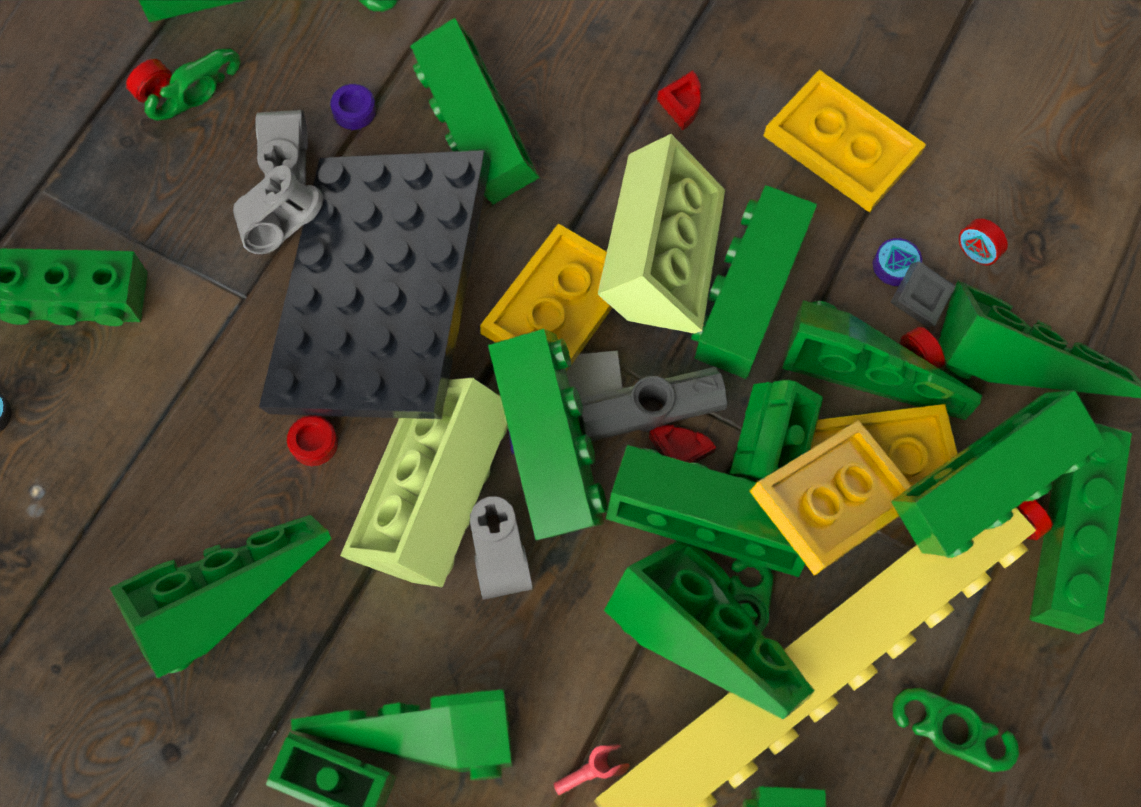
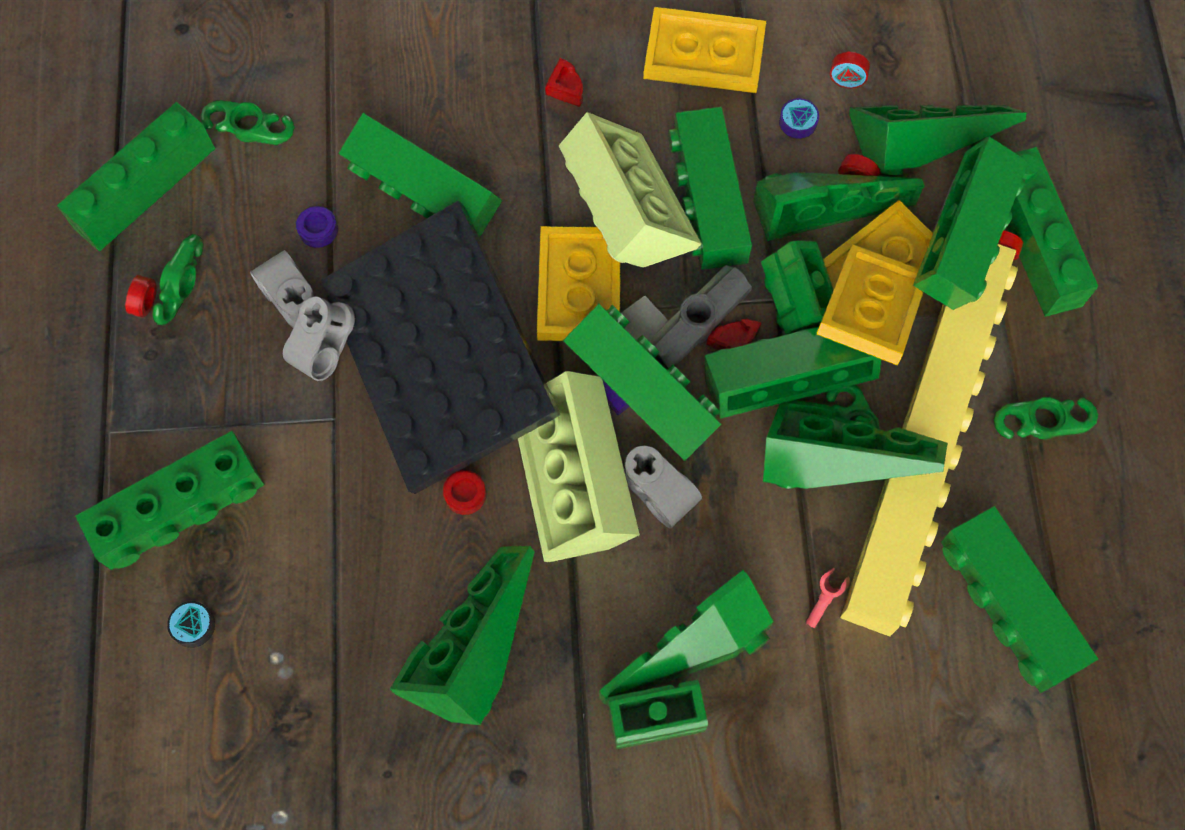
camera: 30 degrees left, 0 degrees up
(923, 294) = (832, 131): dark grey tile -> none

